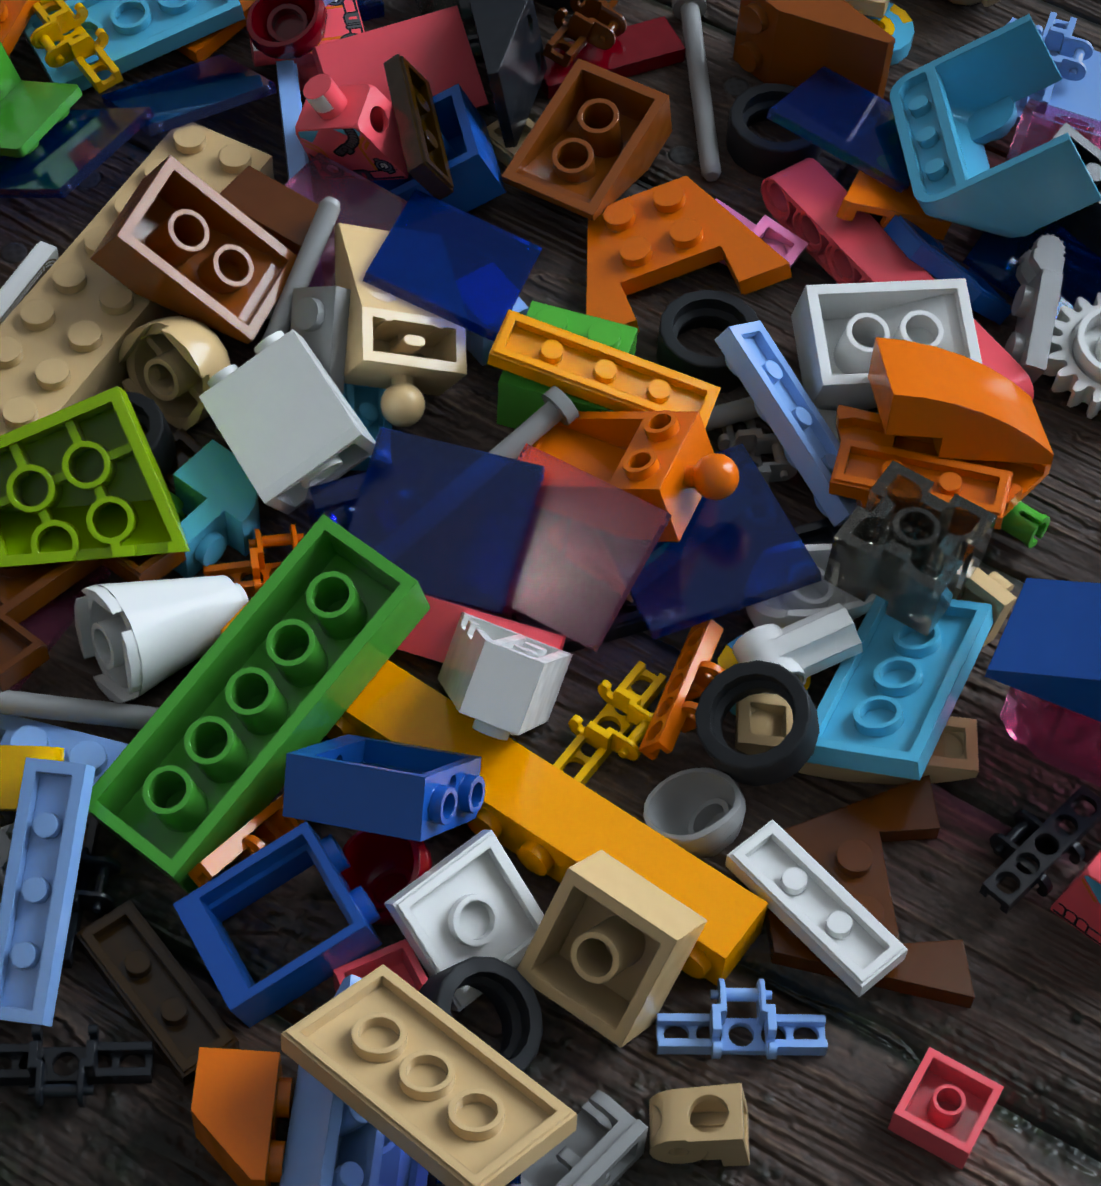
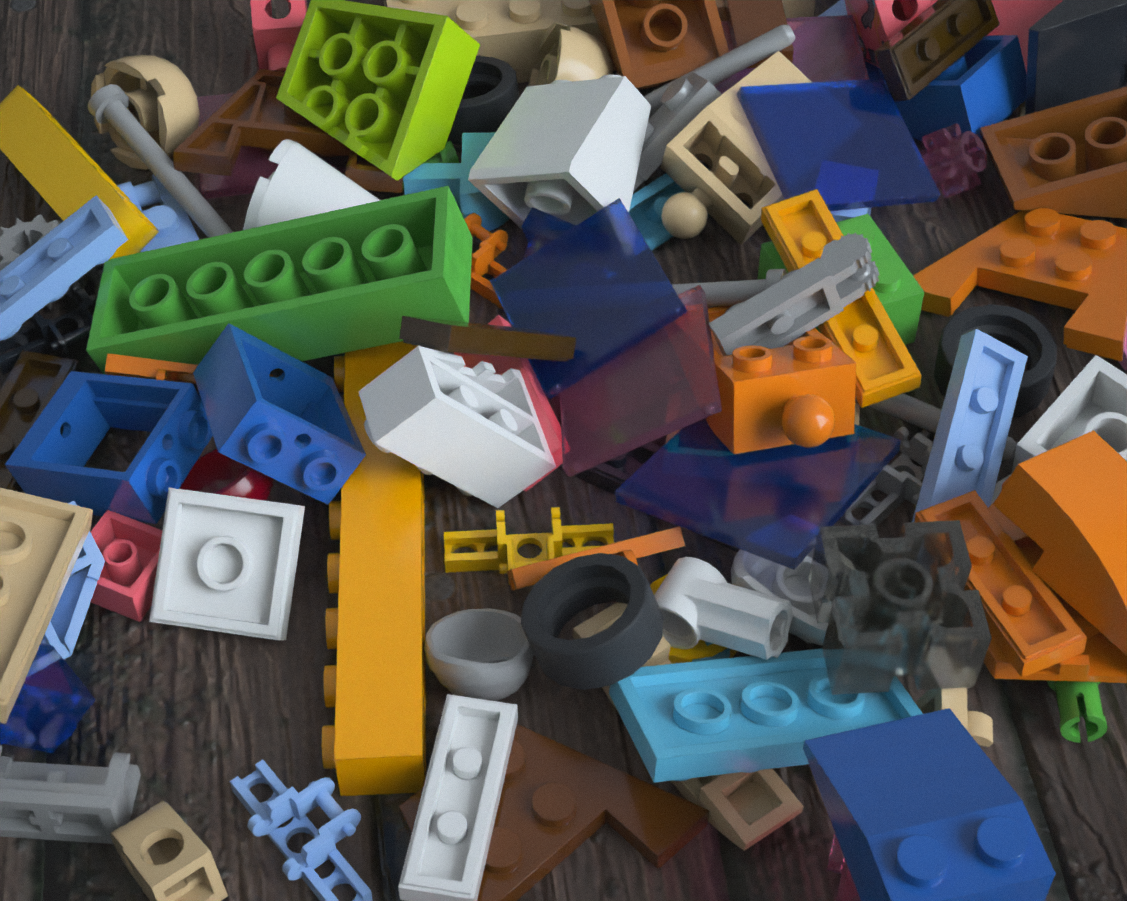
camera: 55 degrees right, 5 degrees down
(462, 603) = (486, 339): none -> dark brown tile
(508, 992) = (106, 578): black tyre -> none
(510, 210) = (954, 159): none -> clear pink gear
(606, 398) = (800, 298): none -> light grey hinge
(610, 947) = (267, 665): tan brick -> none

